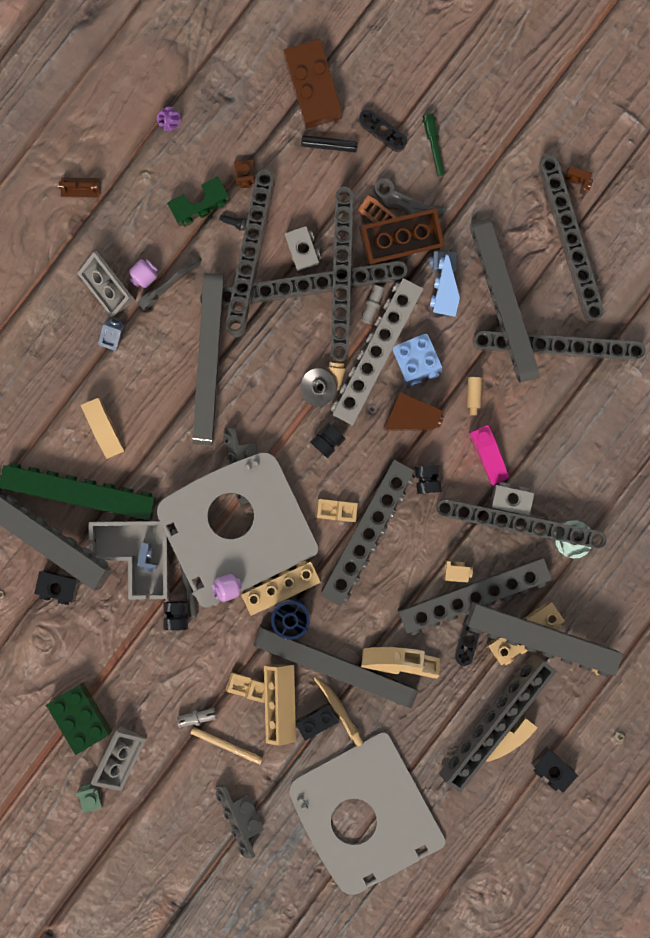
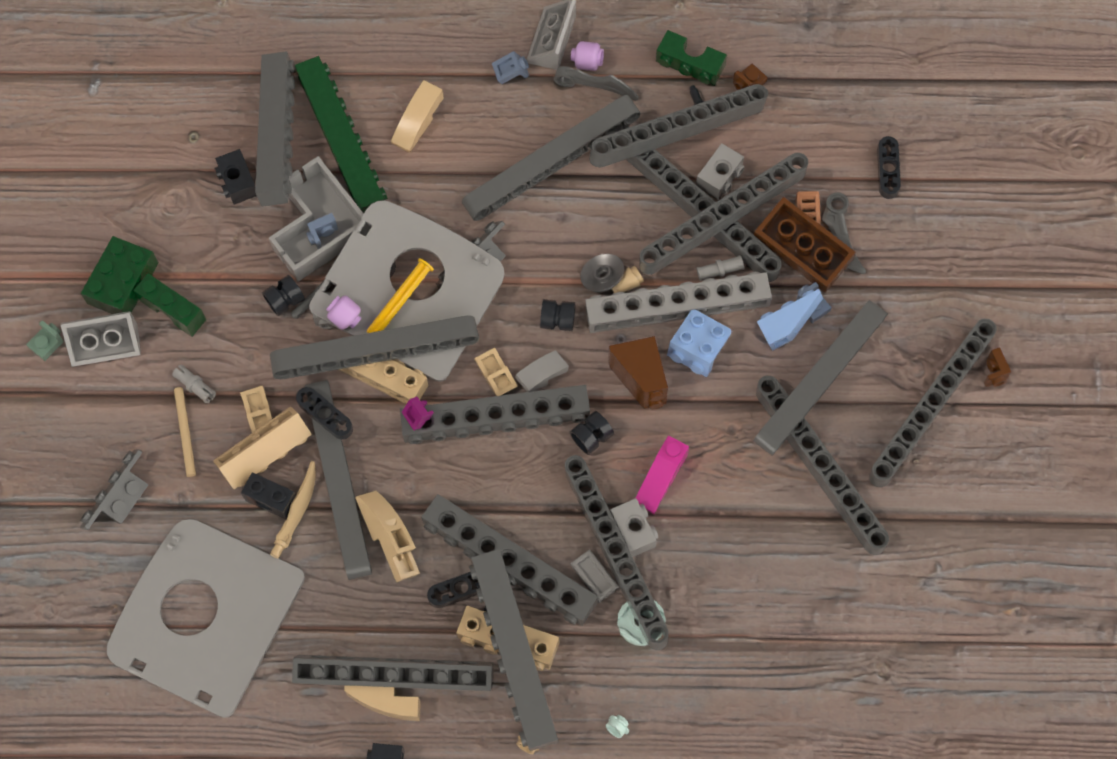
camera: 55 degrees right, 20 degrees down
(124, 698) = (161, 297): none -> dark green arch
(242, 542) = (400, 296): none -> yellow axle
(267, 584) = (374, 347): none -> dark grey beam
(299, 623) = (356, 394): dark blue cylinder -> none
(303, 650) = (332, 428): none -> black beam
(313, 84) = (877, 78): reddish brown brick -> none
(329, 143) = (837, 131): black axle -> none
(335, 589) = (416, 413): none -> magenta tile
(359, 479) = (541, 370): none -> light grey slope
(432, 135) = (921, 212): dark green pin -> none
(457, 572) = (520, 526): tan brick -> none
(474, 394) = (709, 420): tan cylinder -> none
(523, 547) = (594, 575): none -> light grey tile
(630, 604) = (617, 726): none -> light aqua plate

